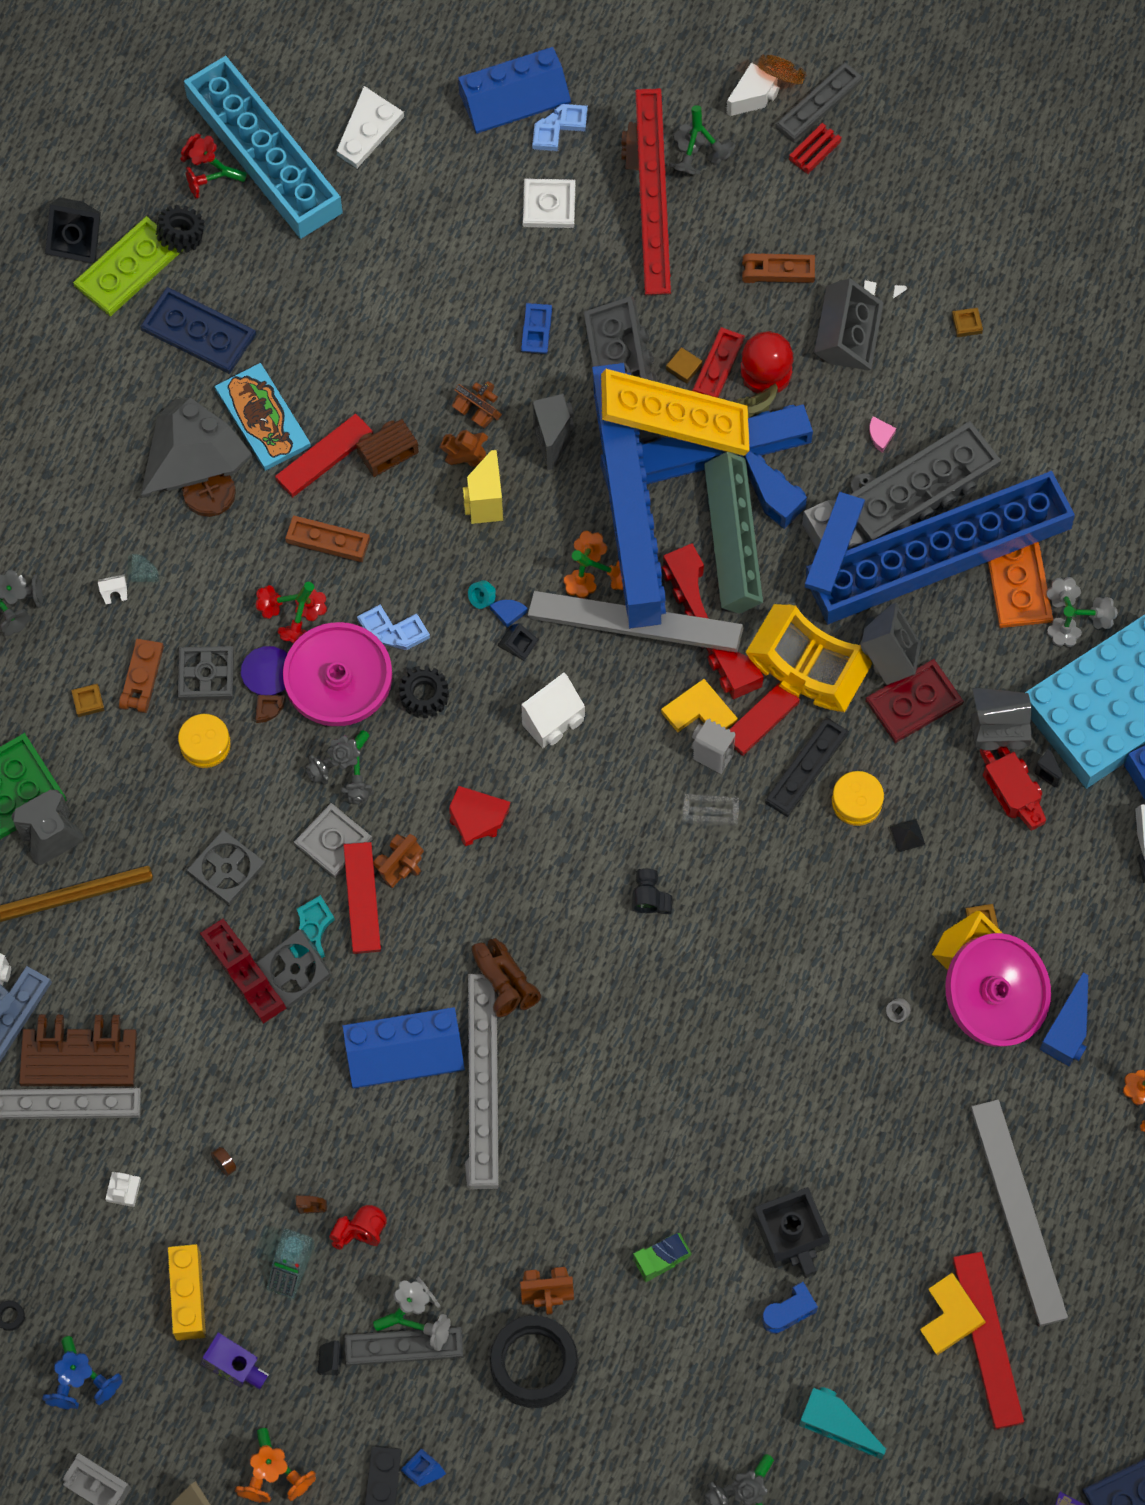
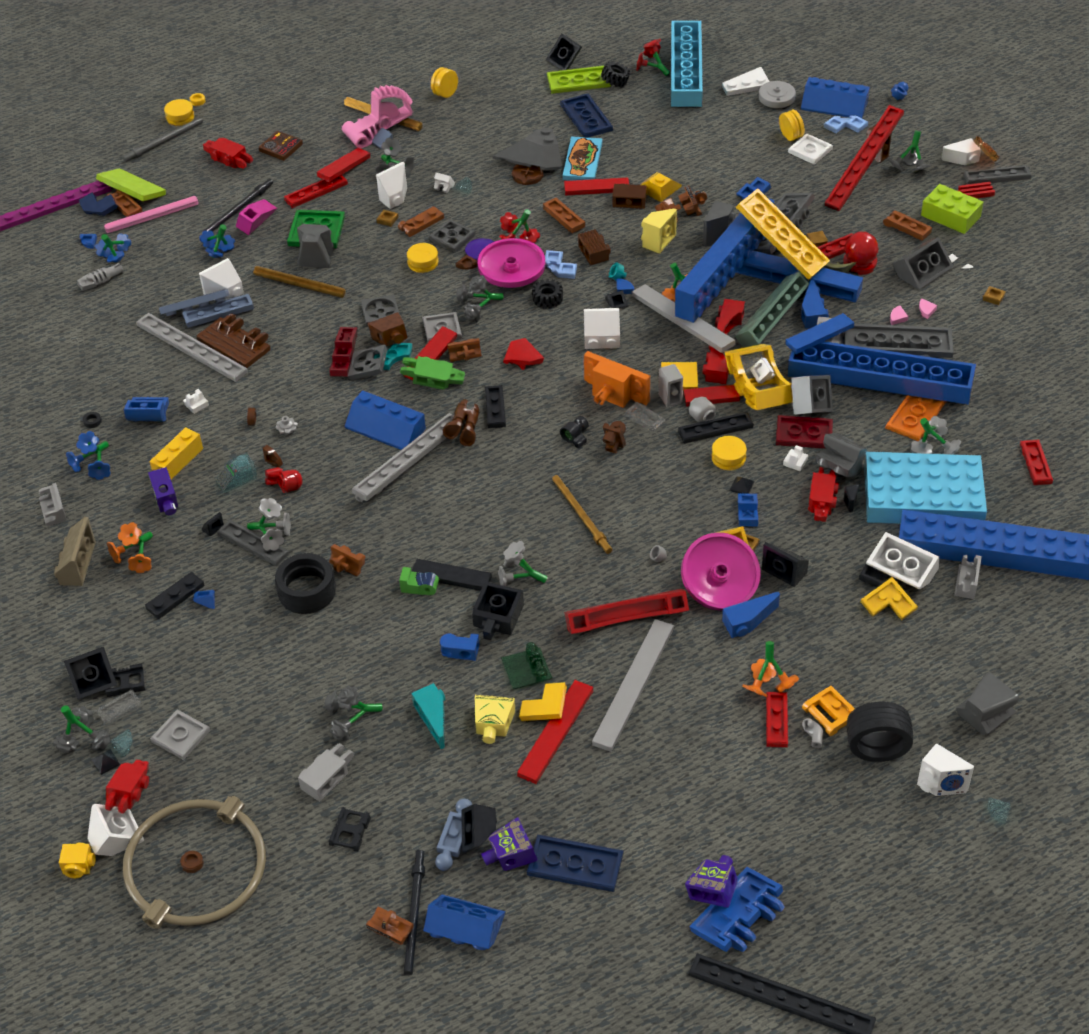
camera: 40 degrees right, 20 degrees down
(57, 648) = (392, 185): none -> white slope
(74, 1248) = (146, 409): none -> blue brick
(278, 898) = (388, 330): none -> reddish brown torso
(281, 1142) = (286, 425): none -> light grey plant
(399, 928) = (432, 372): none -> bright green hinge
(406, 399) = (660, 186): none -> yellow slope
(416, 571) = (593, 247): none -> reddish brown brick
(430, 129) = (777, 94): none -> light grey wheel
(501, 181) = (791, 125): none -> yellow head
(514, 921) = (495, 406): none -> black tile
(584, 23) = (900, 90): none -> blue plate
(640, 788) = (615, 381): none -> orange brick
(686, 1215) = (453, 574): none -> black tile
(710, 871) = (614, 436): none -> reddish brown hips
(762, 1145) = (513, 554): none -> light grey plant
(773, 752) = (702, 409): none -> light grey head
(807, 648) = (762, 371): none -> white tile
(811, 1034) = (598, 536): none -> pearl gold bar
(815, 205) = (952, 208): none -> lime brick
(884, 1280) = (526, 667): none -> clear green hinge
(900, 1167) = (625, 610): none -> red arch
(905, 398) = (927, 308): none -> bright pink tile
(909, 1378) = (493, 716): none -> light yellow torso
(938, 751) = (795, 458): none -> white tile
(943, 868) = (747, 510): none -> blue slope
(1058, 924) = (784, 564): none -> black slope

